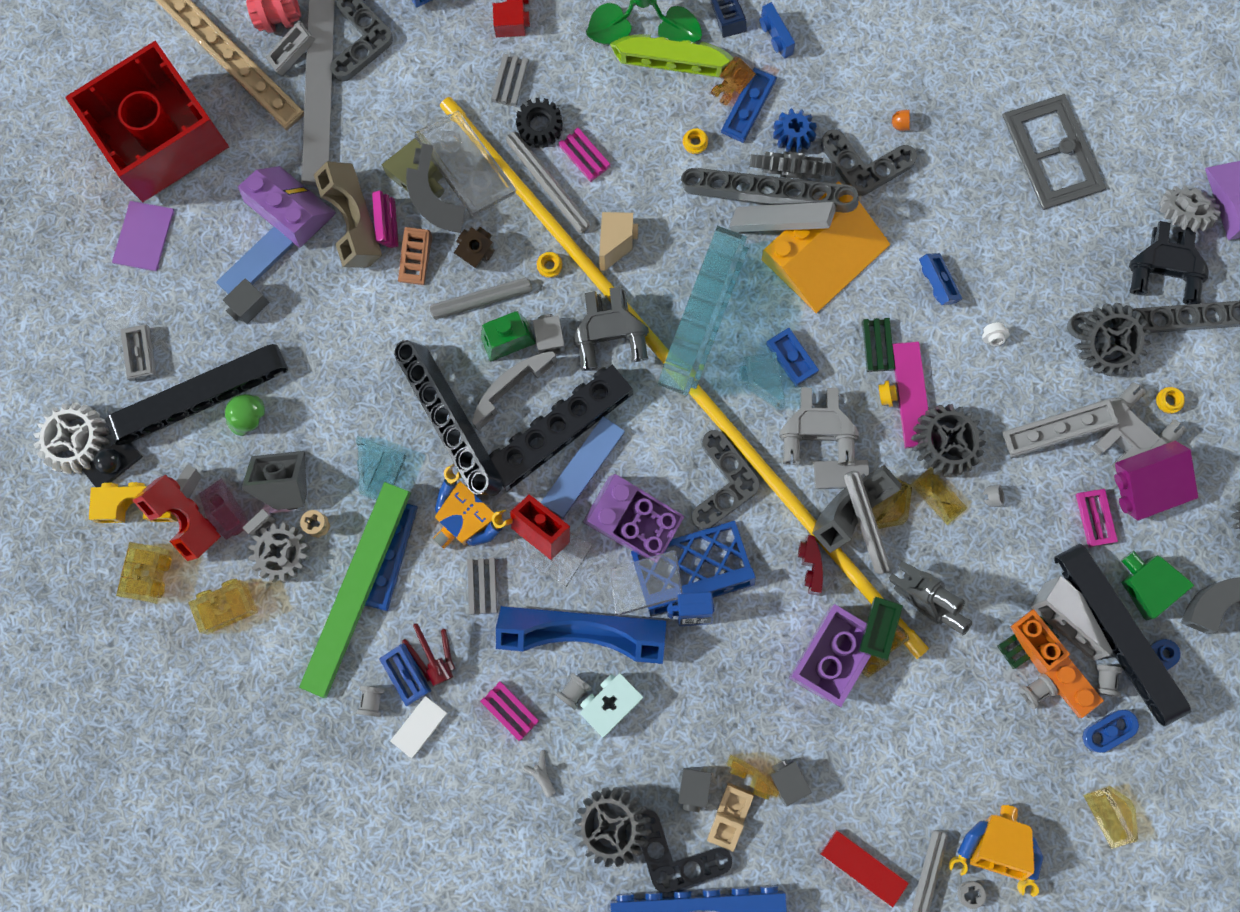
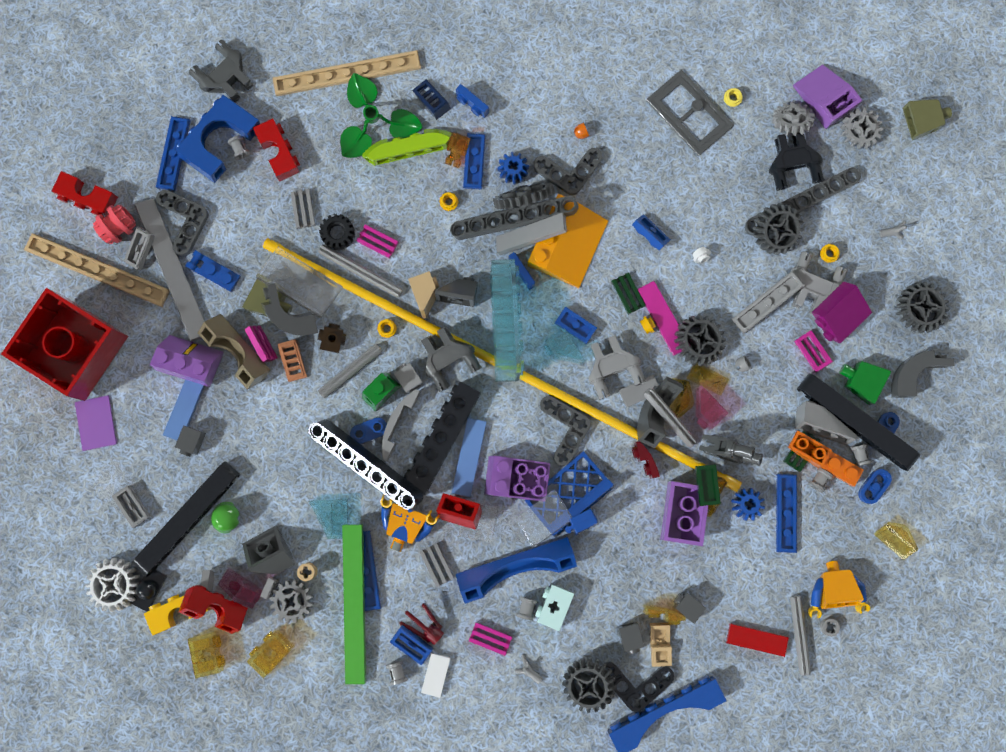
camera: 30 degrees left, 5 degrees up
(367, 112) = (213, 271): none -> blue plate
(470, 380) = (368, 430): none -> blue plate
(658, 254) = (458, 292): none -> dark grey slope
(752, 263) = (523, 272): none -> blue tile
(922, 534) = (707, 409): none -> clear pink slope
(926, 692) = (745, 496): none -> blue gear
(973, 716) = (786, 513): none -> blue tile
(1123, 147) = (737, 93): none -> light yellow plate

